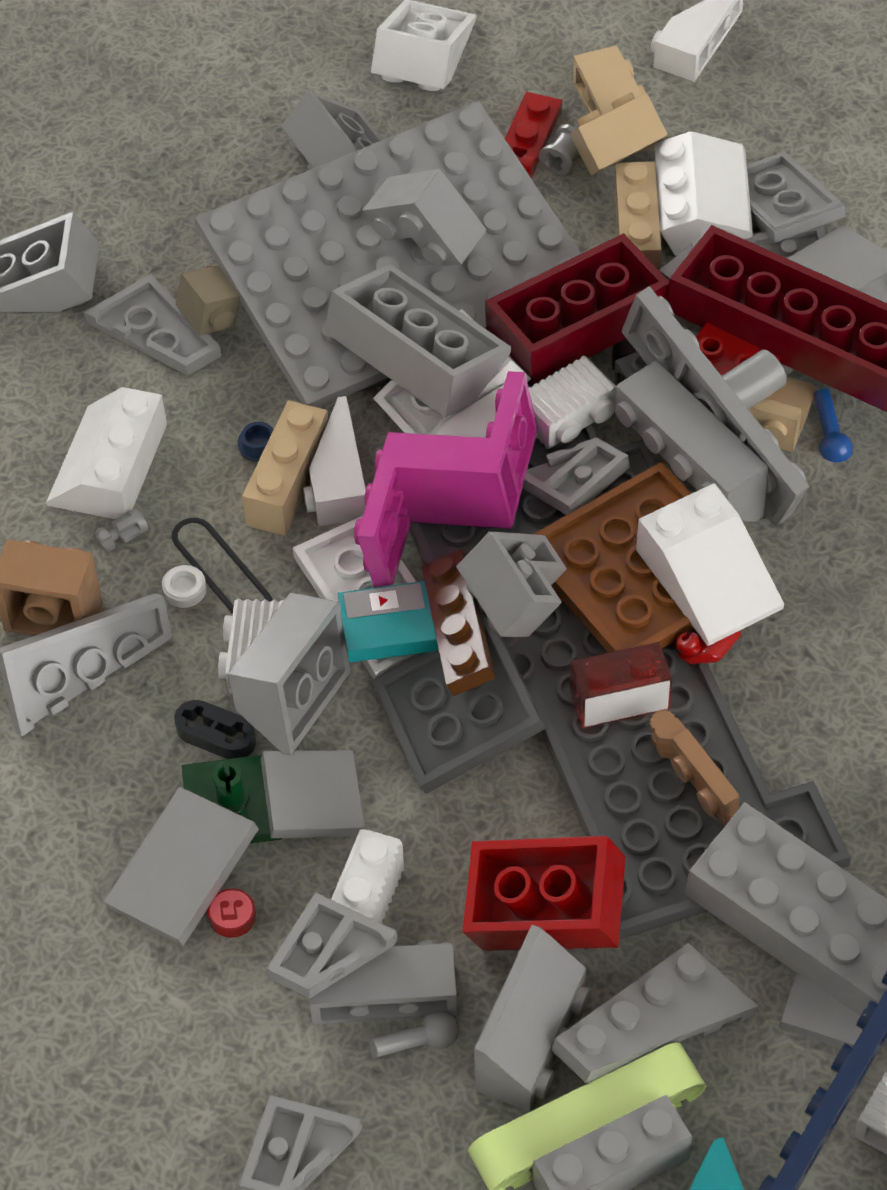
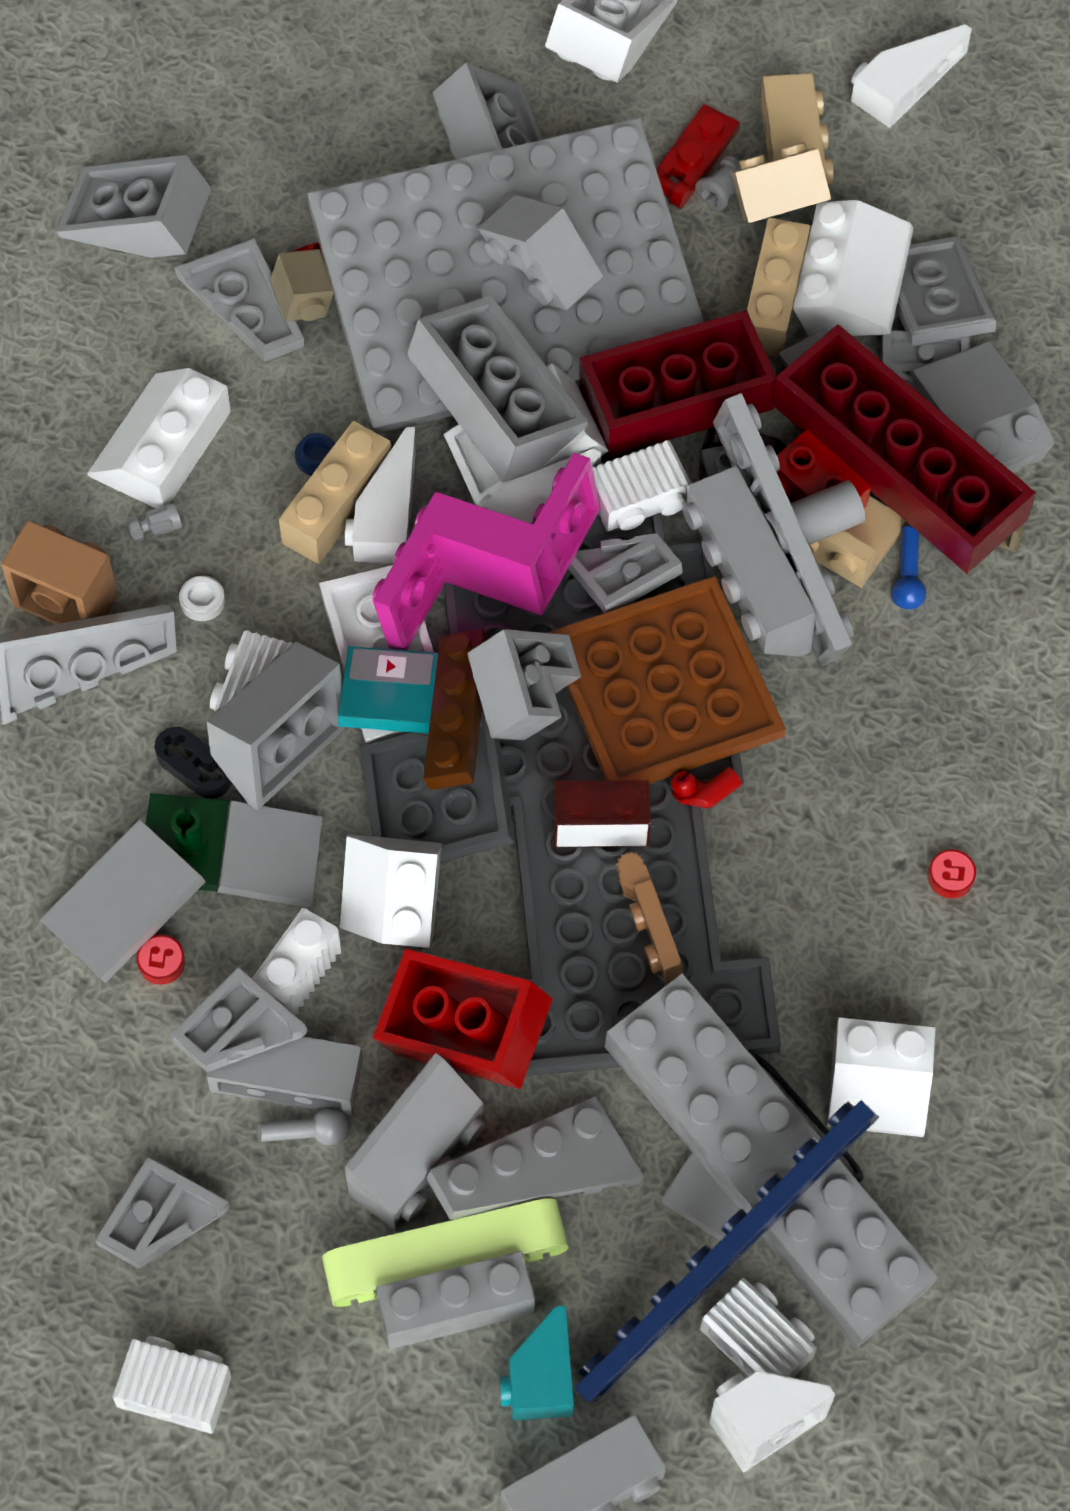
camera: 10 degrees right, 10 degrees up
(228, 550) = (258, 570): black piece -> none
(439, 796) = (390, 889): none -> white slope
(708, 564) = (725, 706): white slope -> none

